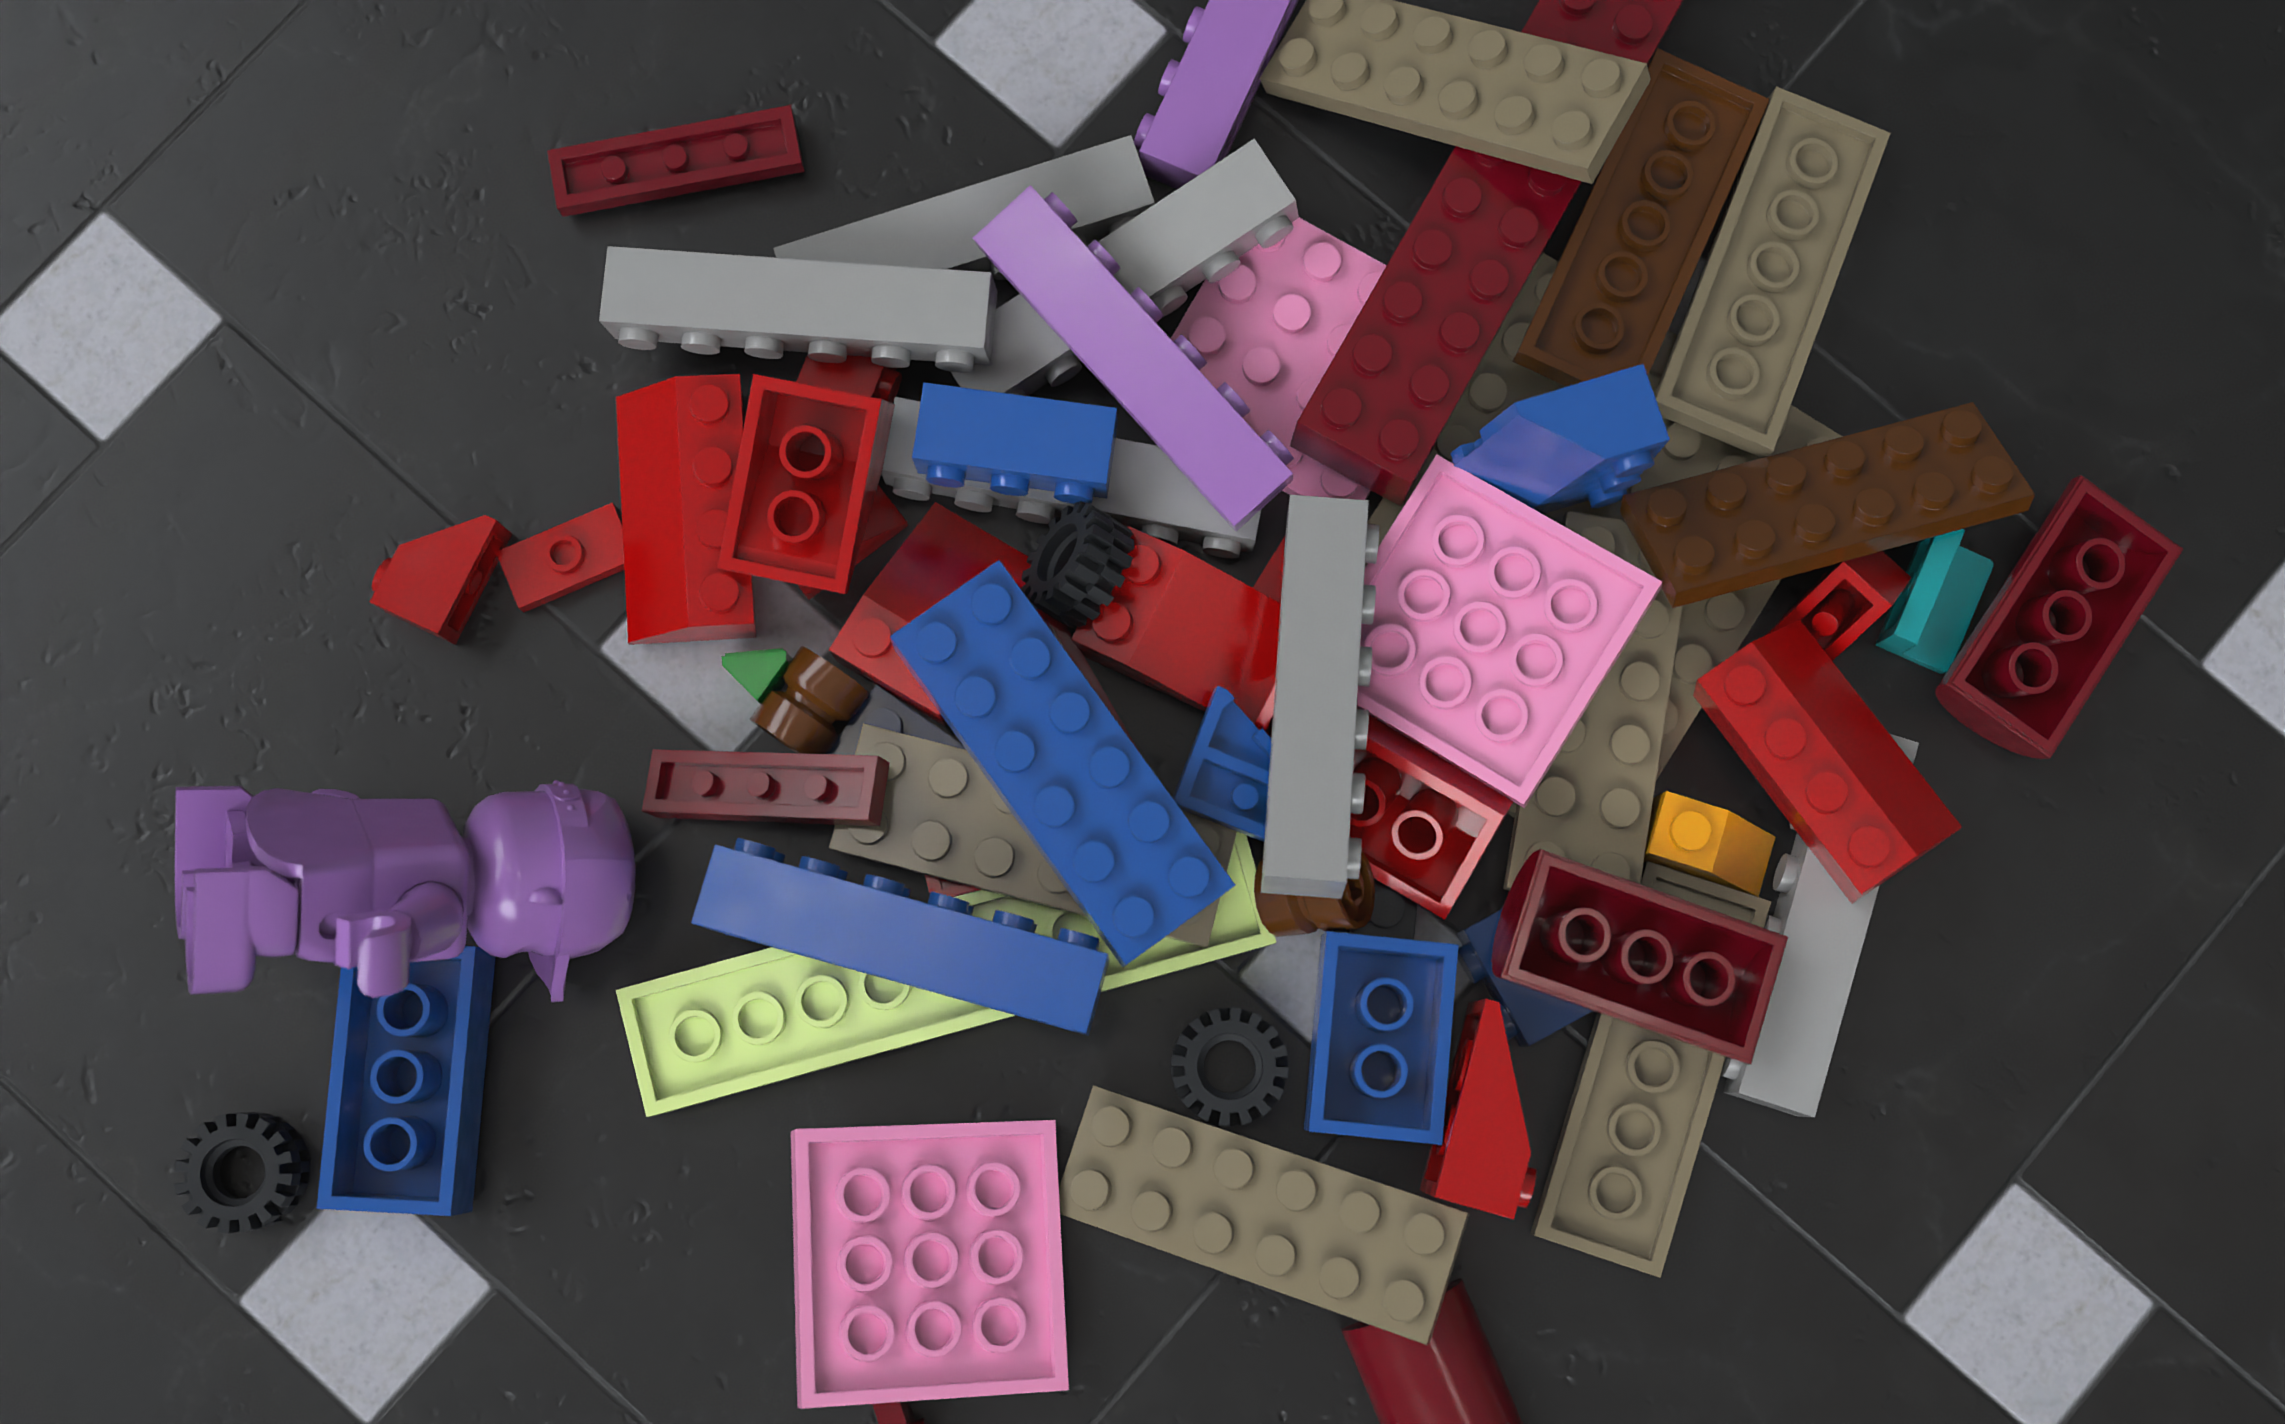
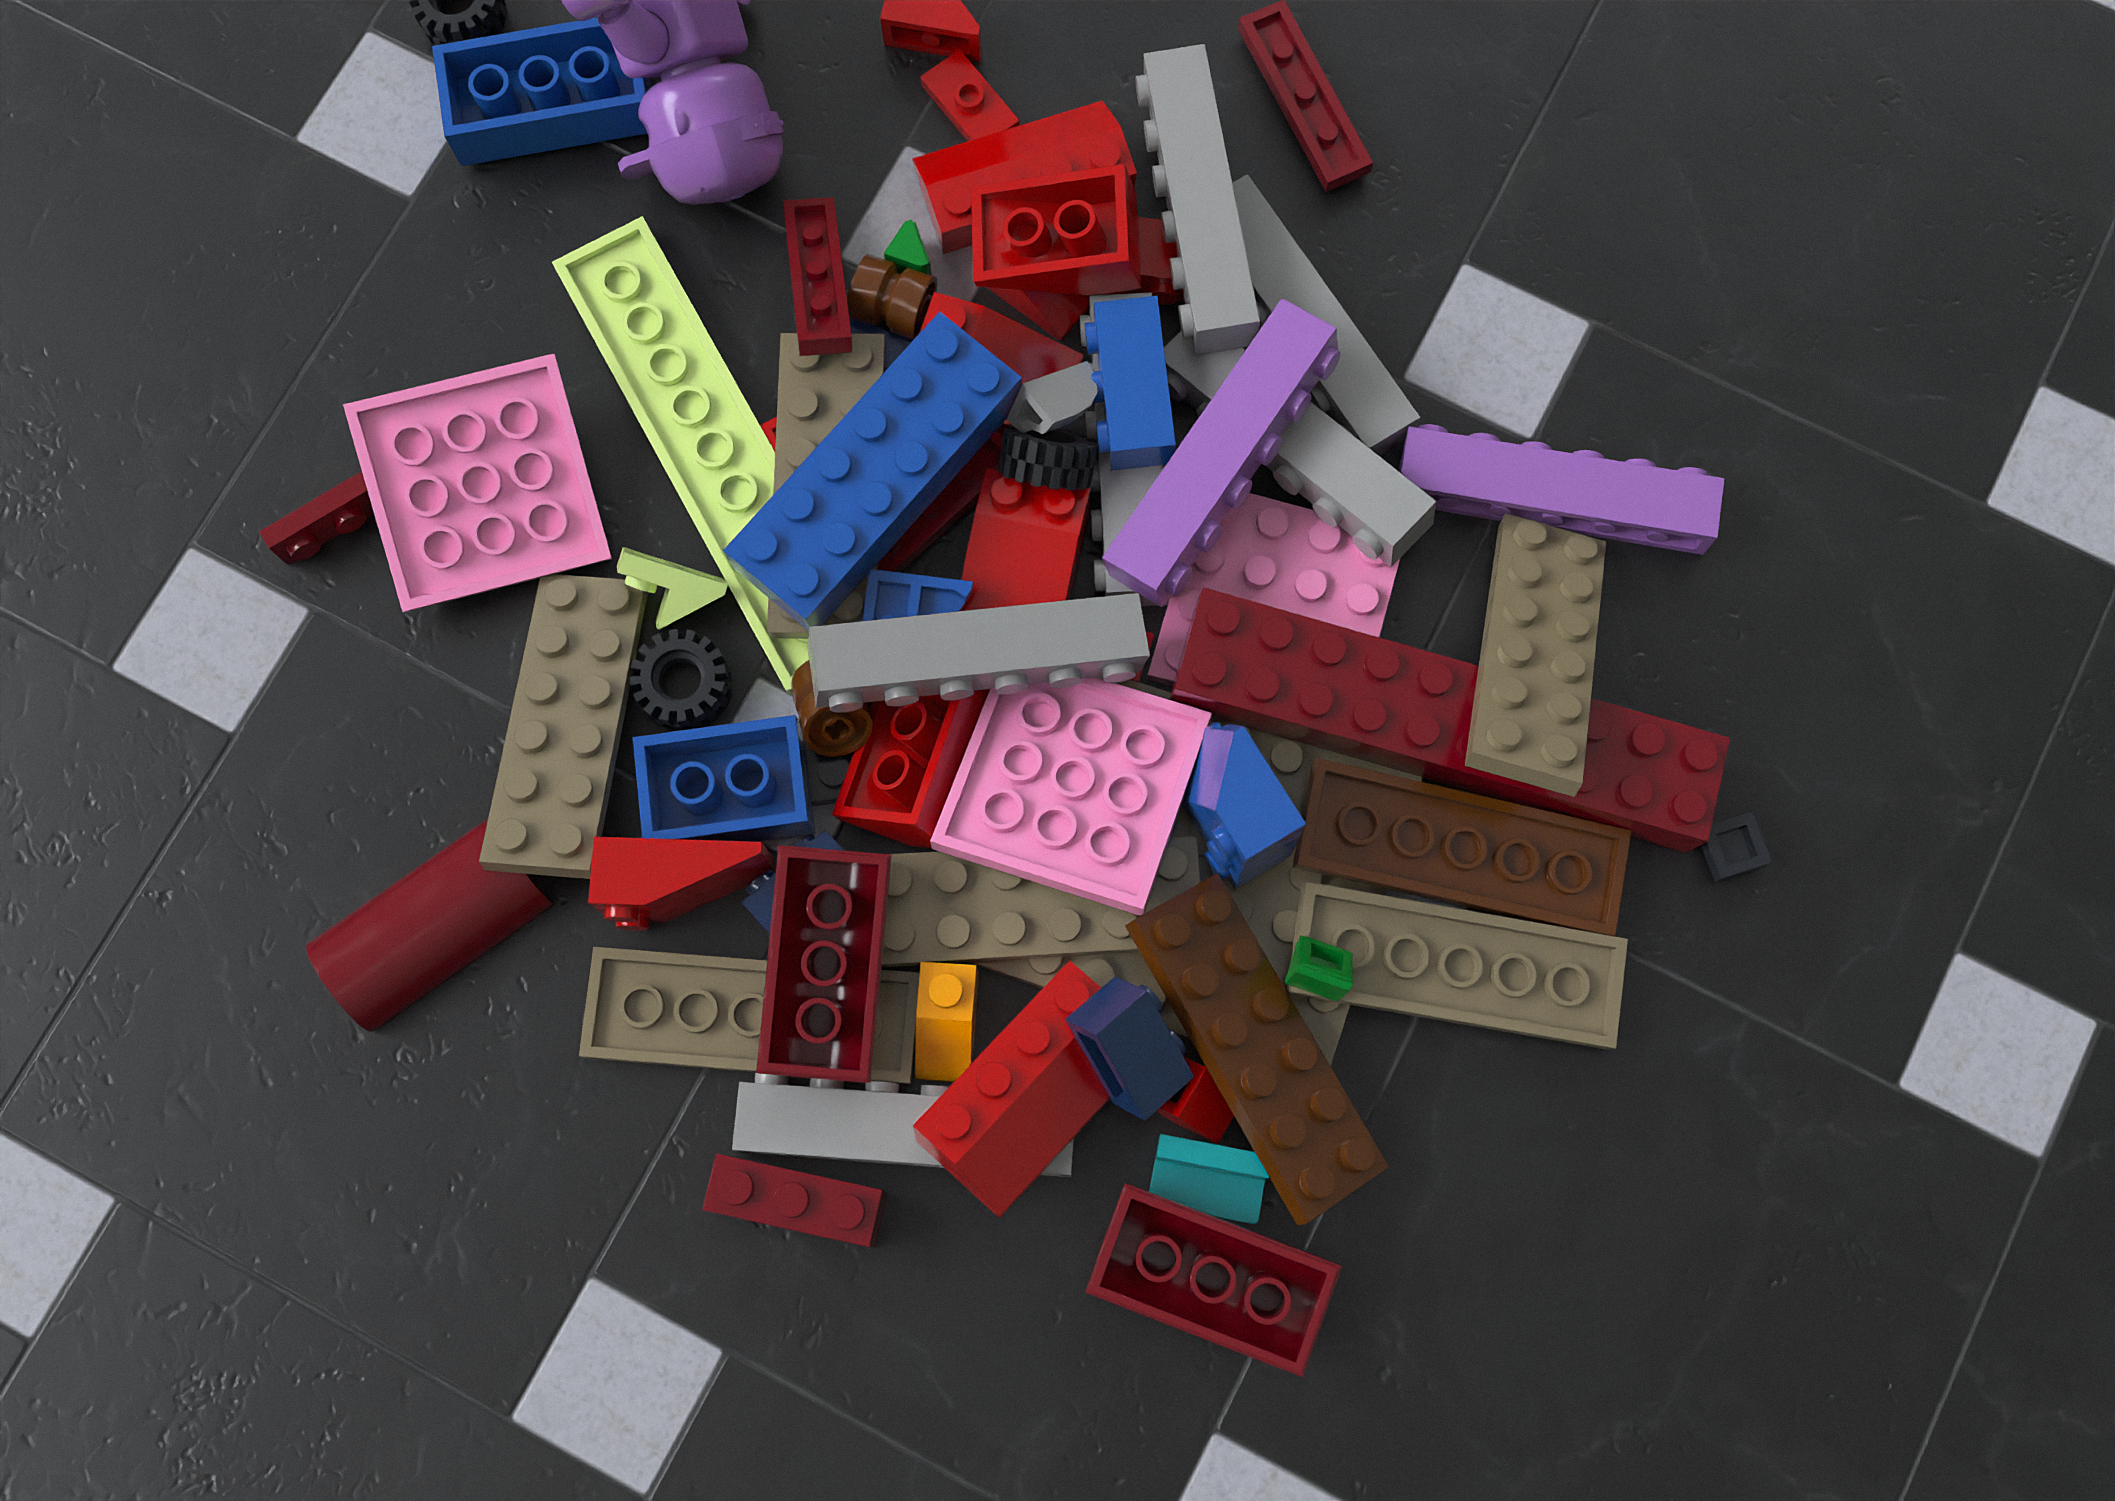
camera: 80 degrees right, 5 degrees down
(902, 939) = (714, 394): blue brick -> none
(1024, 532) = (1053, 399): none -> light grey brick
(1119, 1043) = (685, 587): none -> yellowish green slope
(1759, 408) = (1320, 969): none -> green slope
(1812, 634) = (1131, 1046): none -> dark blue brick
(1880, 1058) = (795, 1200): none -> dark red brick

